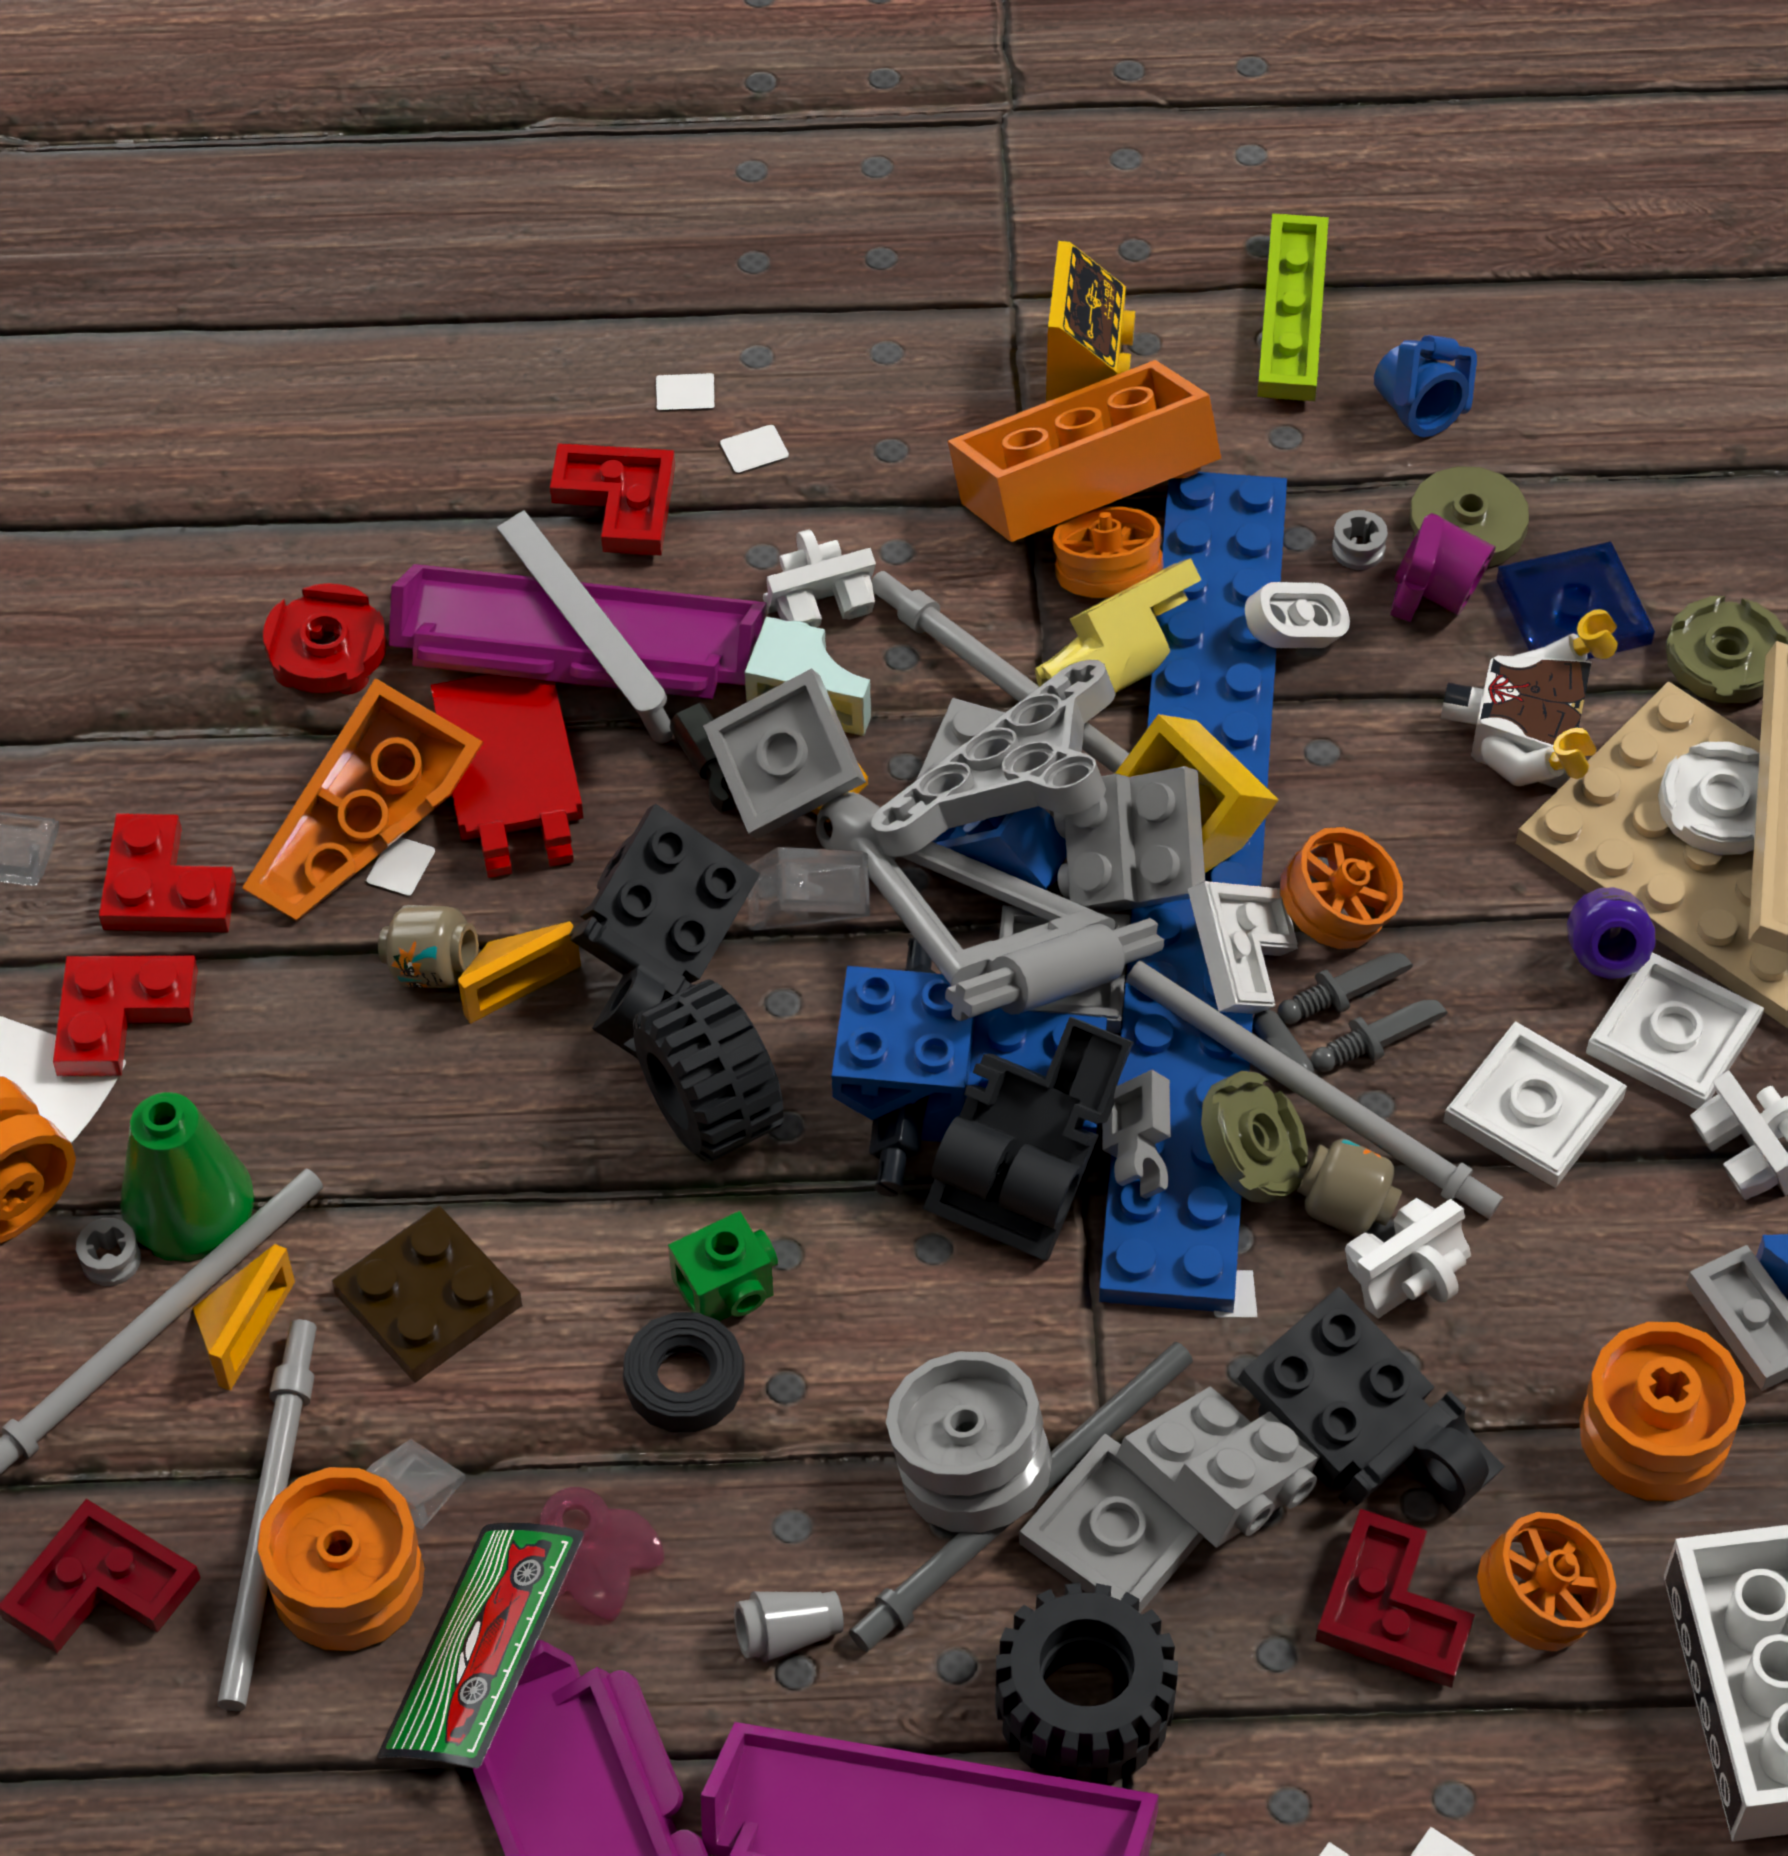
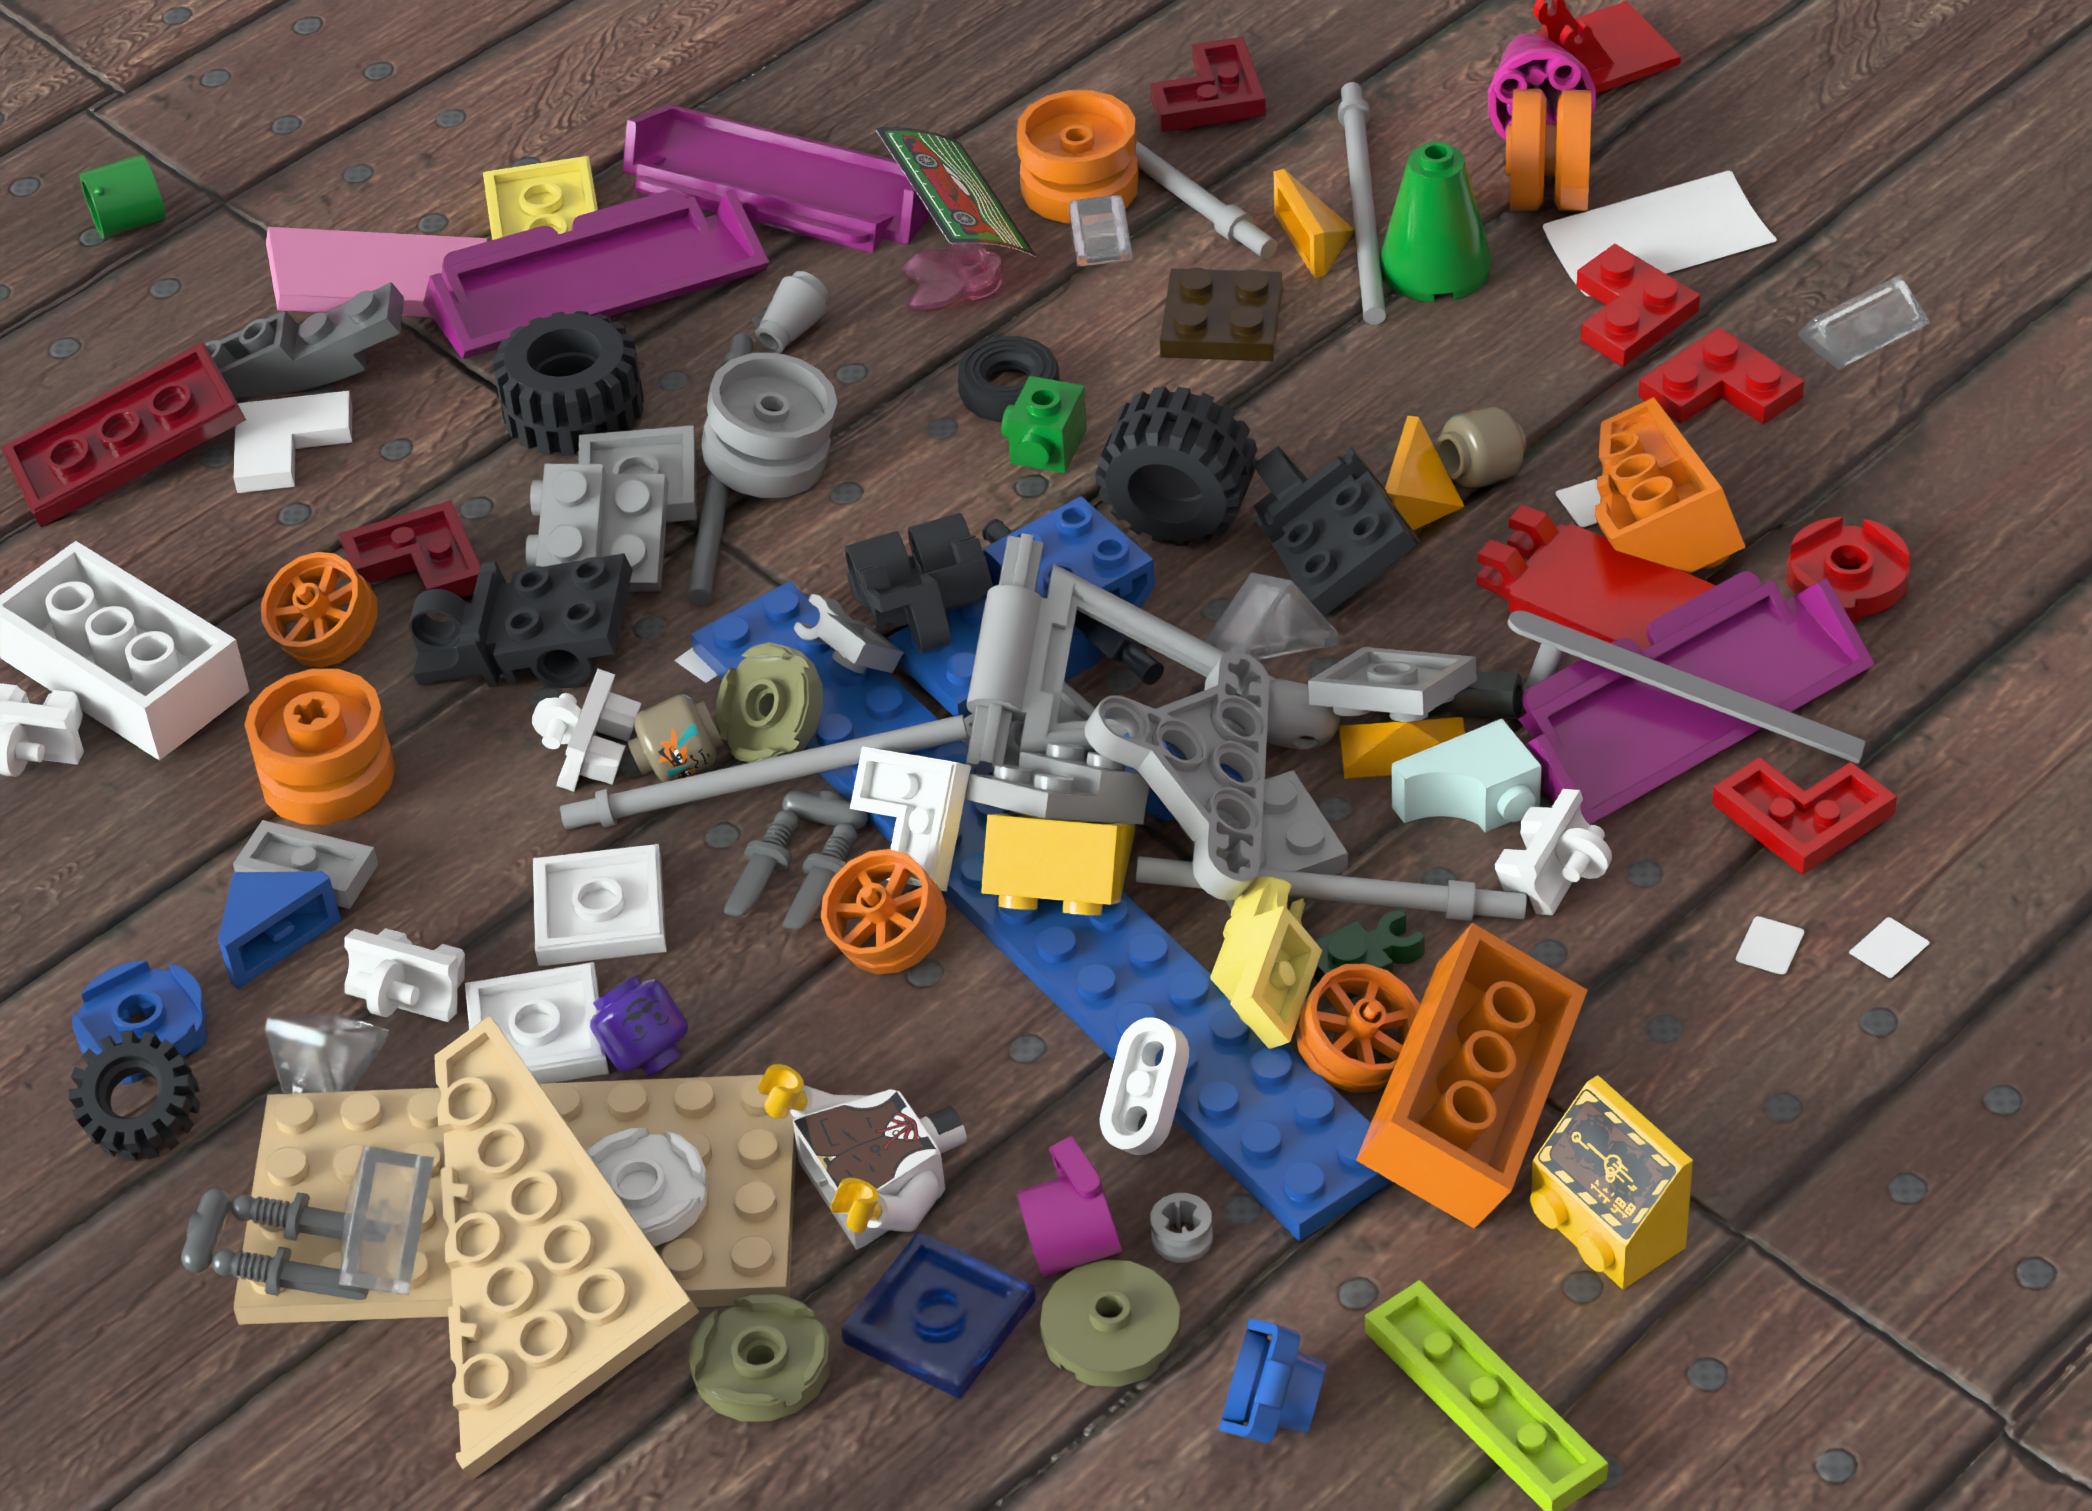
camera: 140 degrees right, 10 degrees down
(1031, 633) = (1377, 947): none -> dark green plate

